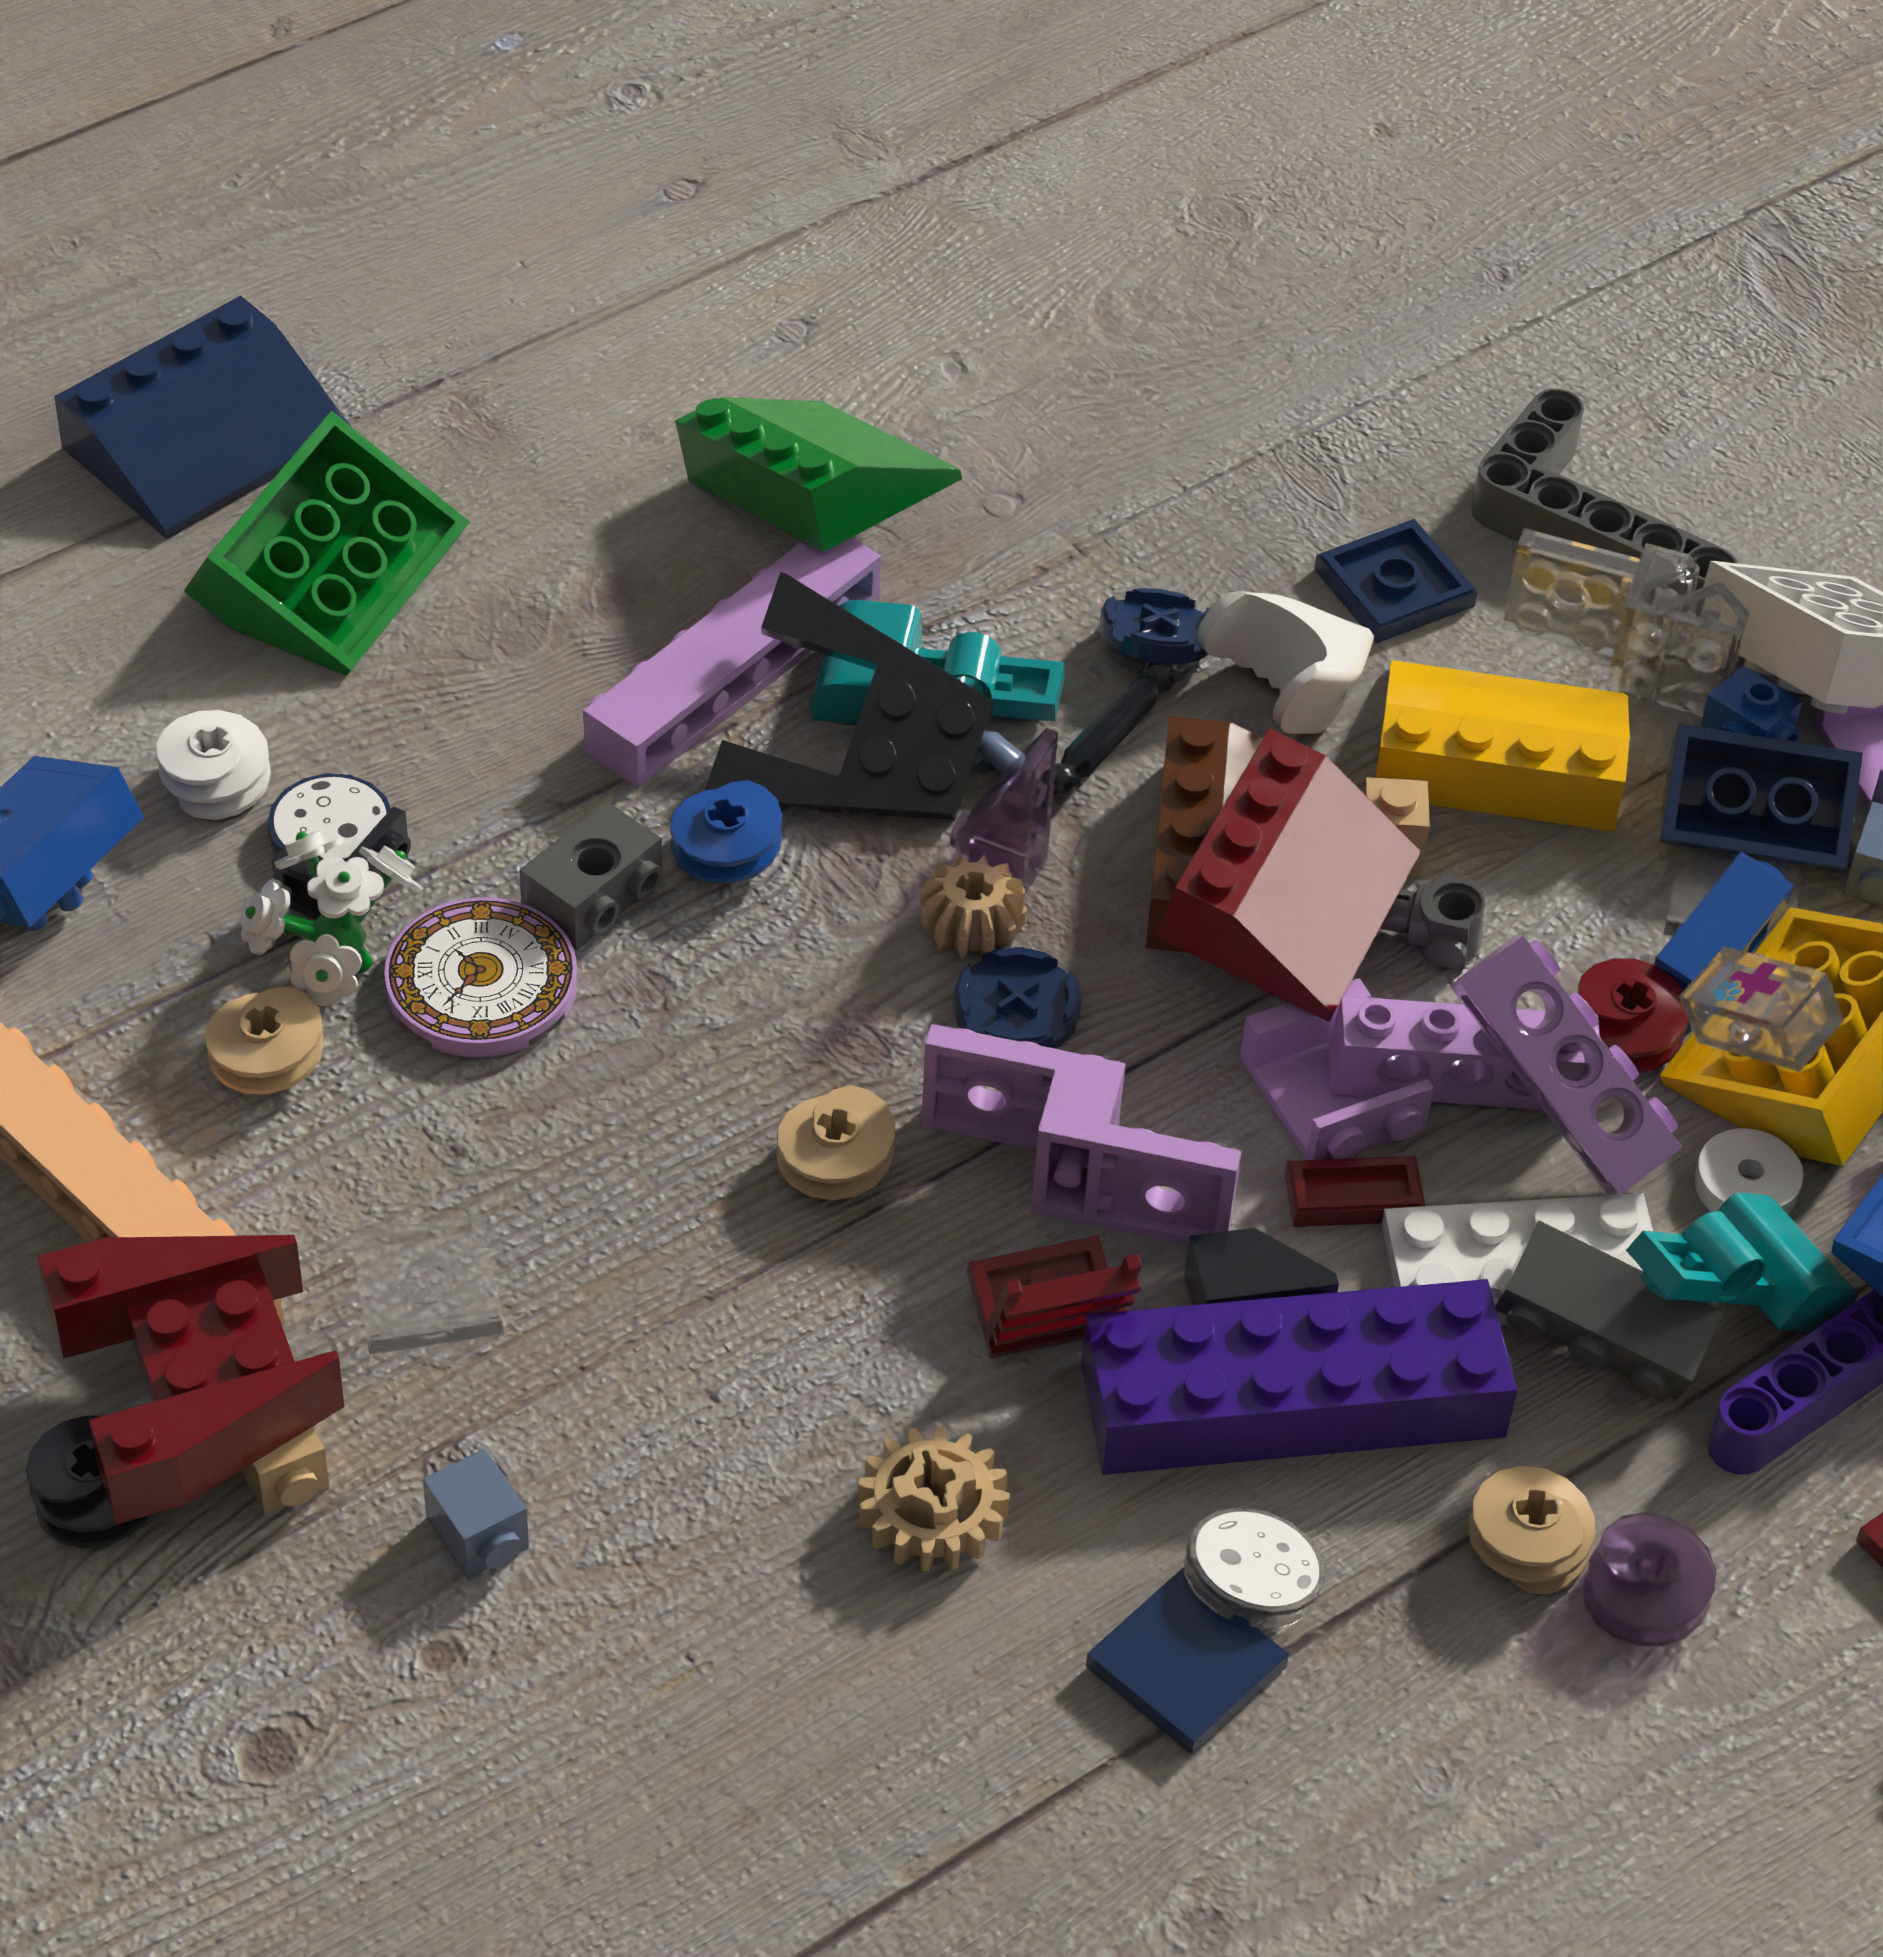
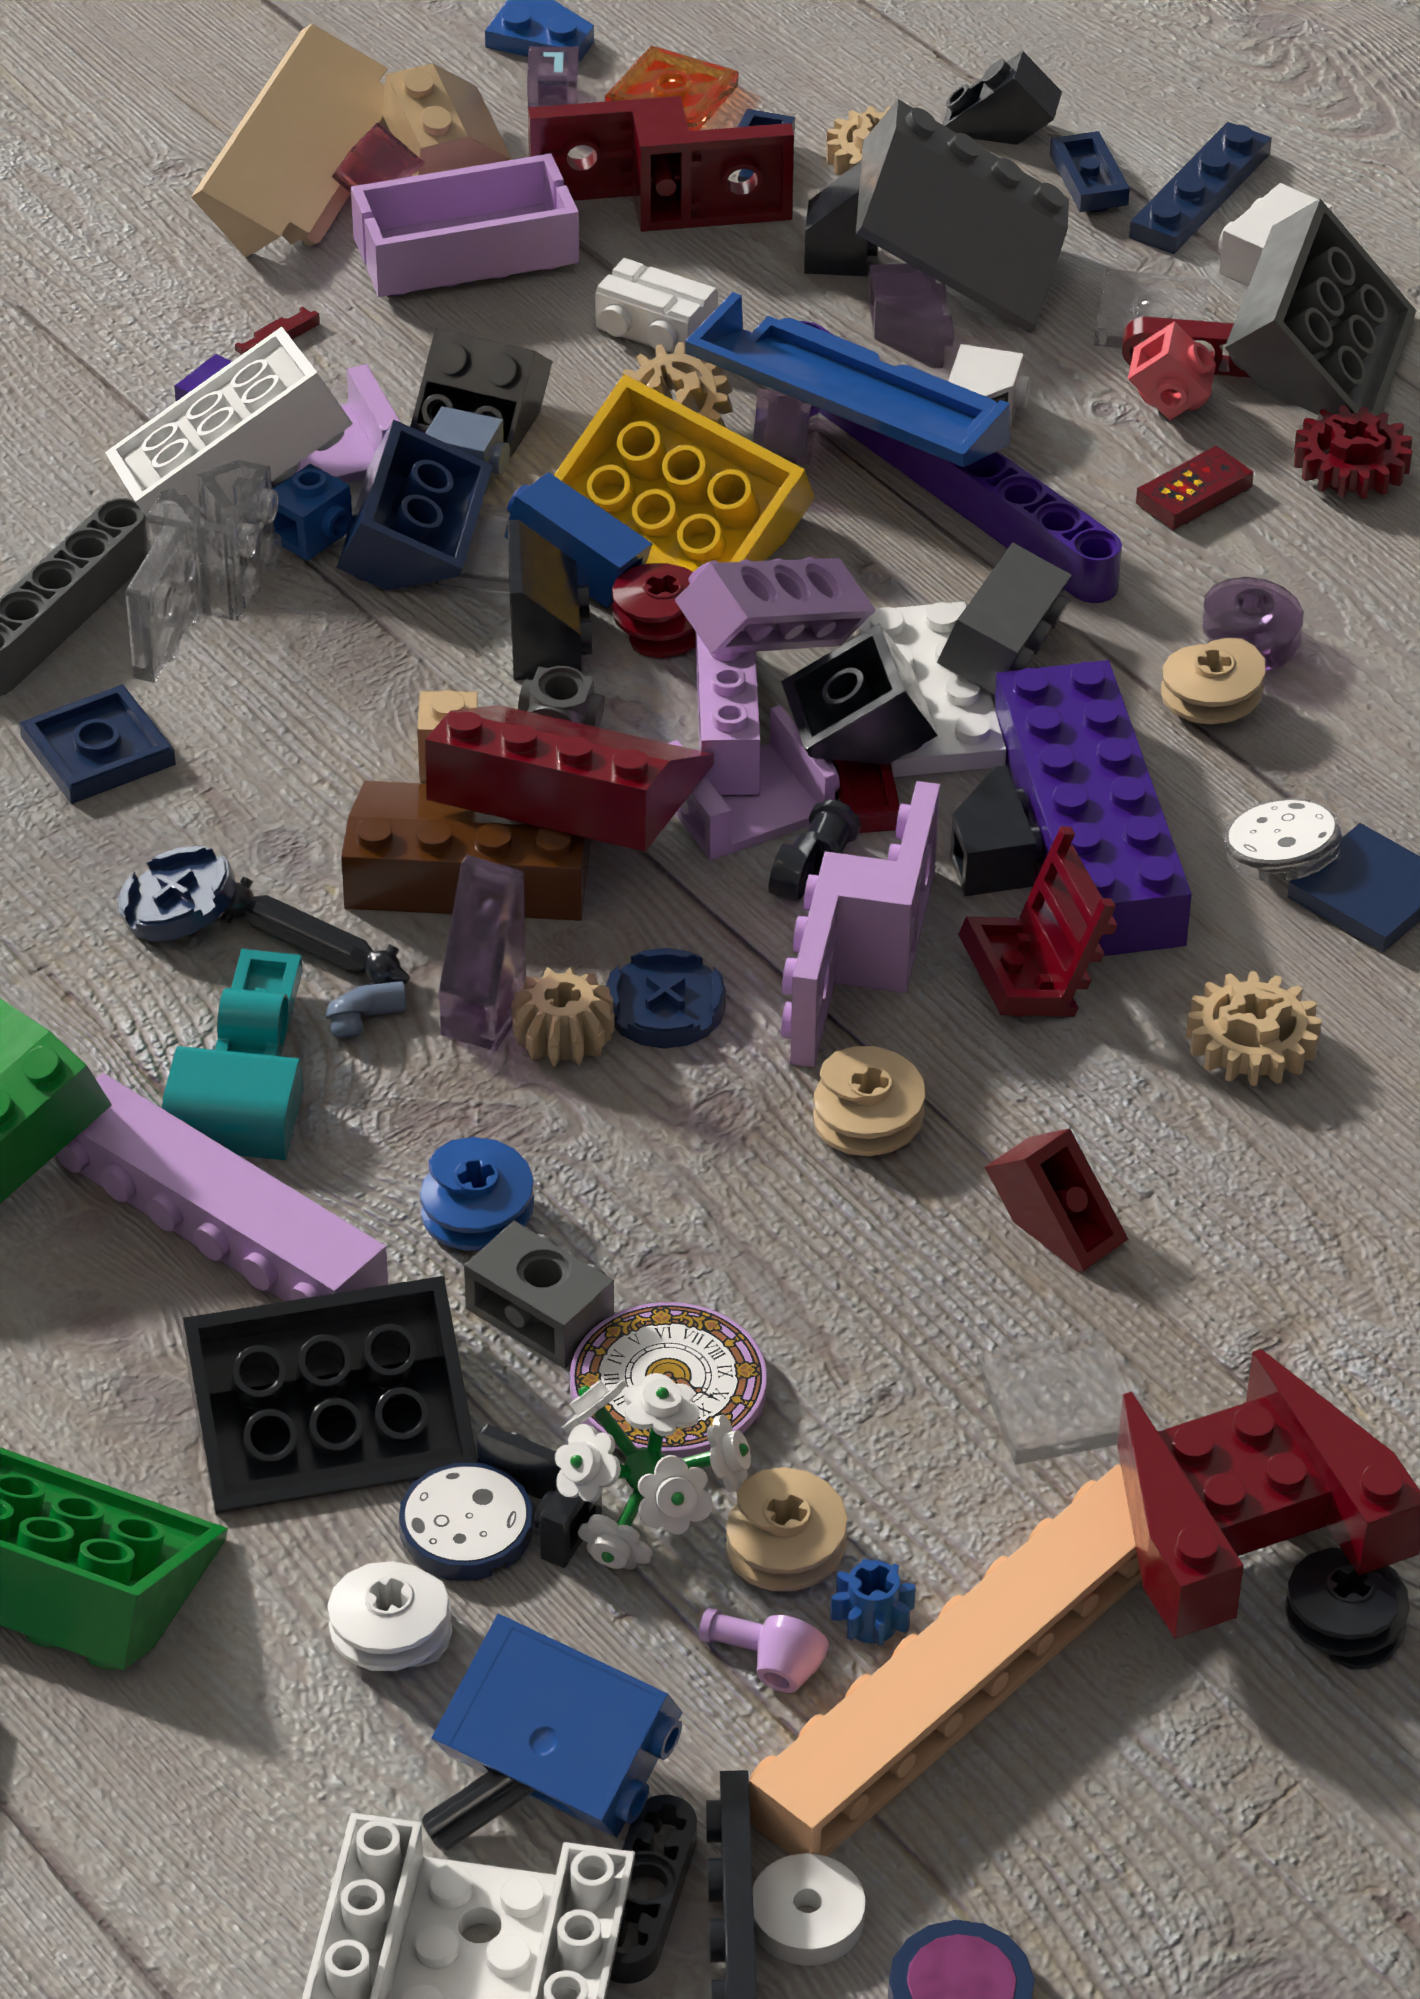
camera: 90 degrees left, 5 degrees down
(129, 1035) = (785, 1646): none -> lavender bar
(167, 1100) = (872, 1601): none -> blue gear
(476, 1514) = (1329, 1324): sand blue brick -> none
(484, 724) = (327, 1393): none -> black slope
(680, 1290) = (1057, 1198): none -> dark red slope
(912, 734) = (357, 1056): black wing -> none
(1223, 1124) = (830, 830): none -> black connector
(1296, 647) = (244, 779): white animal -> none
(1425, 1152) = (860, 702): none -> black slope
(1507, 744) = (320, 672): yellow slope -> none
(1600, 892) = (545, 605): none -> black slope
(1746, 1257) = (959, 522): teal plate -> none
(1752, 1154) = (822, 542): white piece -> none
(1762, 1008) = (687, 499): clear brick -> none

